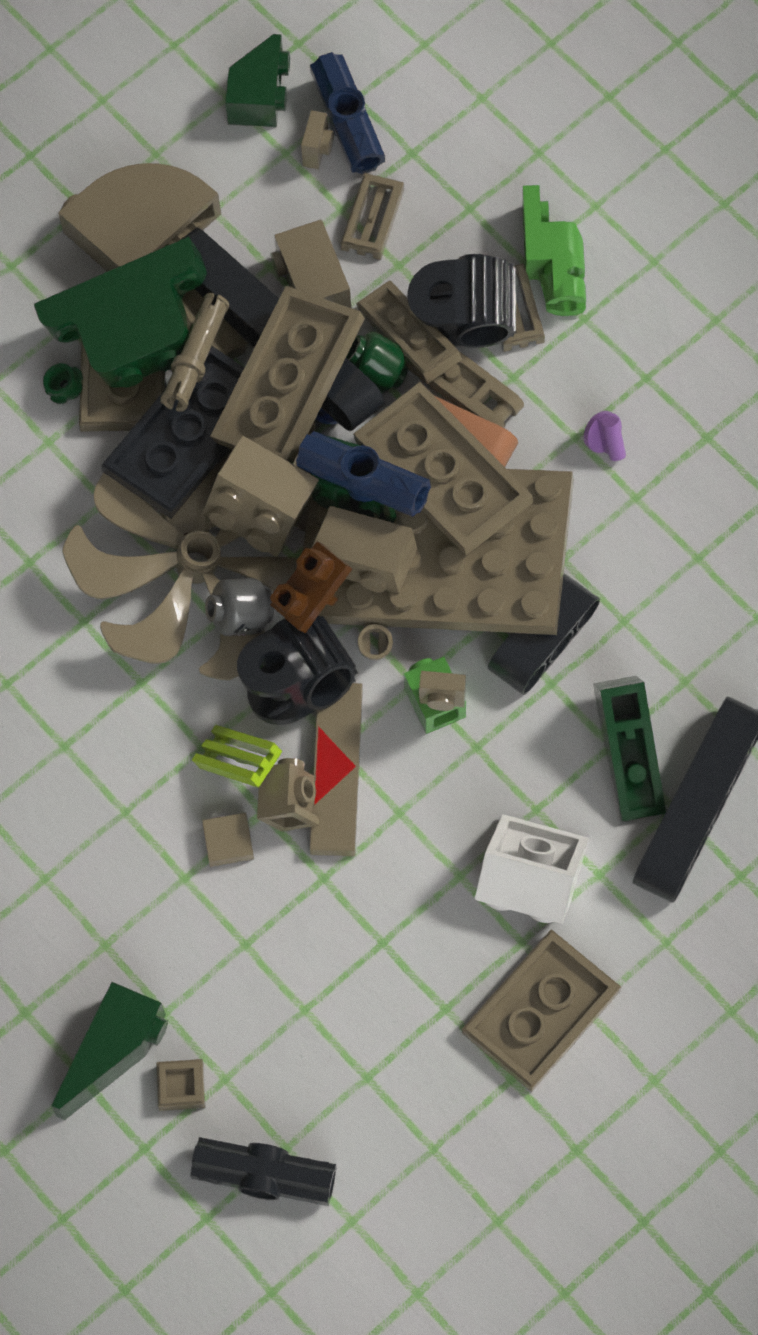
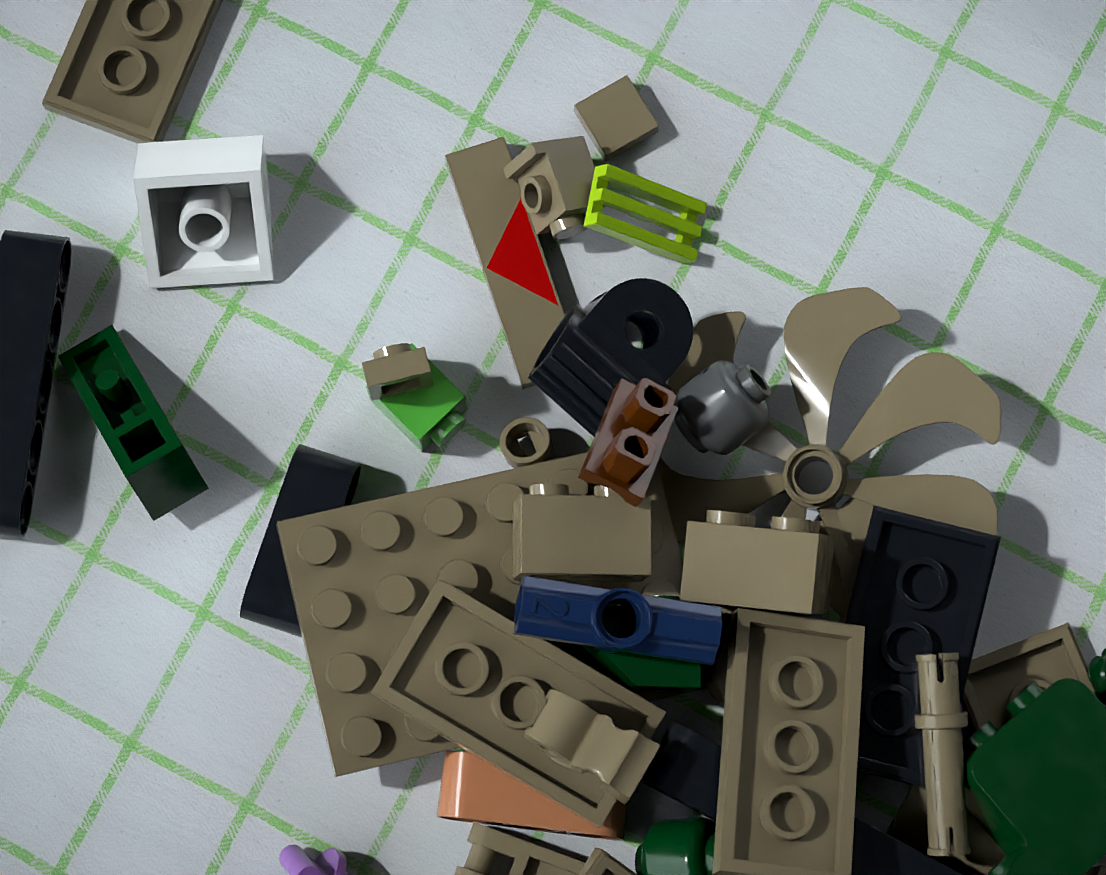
camera: 155 degrees right, 10 degrees up
(410, 419) = (591, 743): none -> dark tan leg

